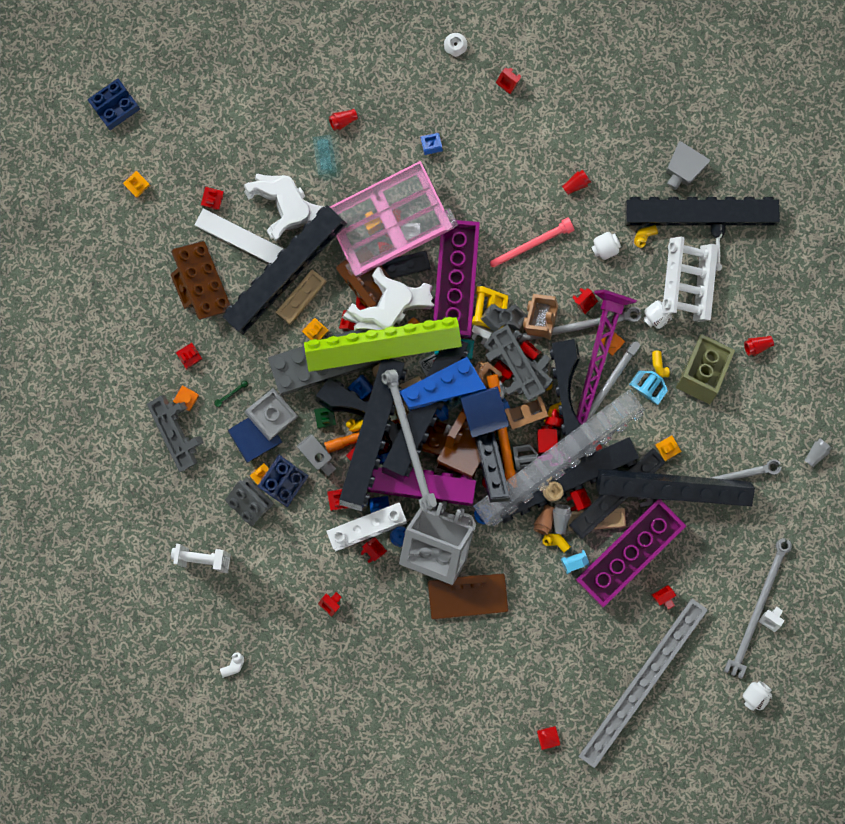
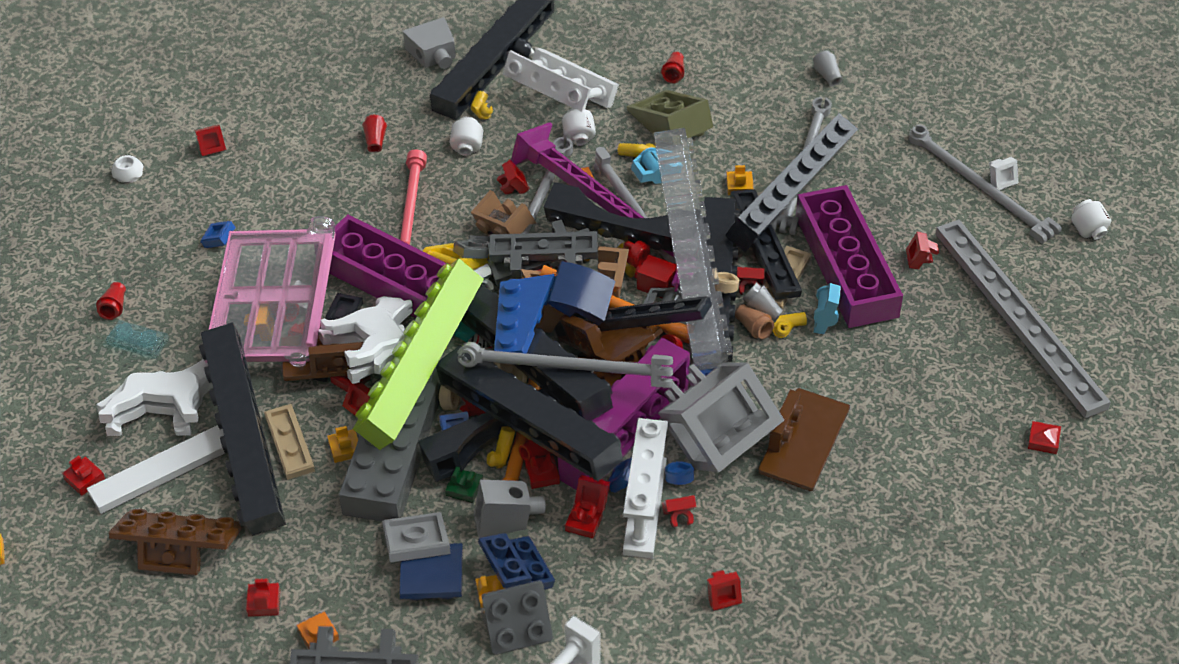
camera: 65 degrees left, 35 degrees down
(218, 403) = (353, 597): dark green hinge -> none

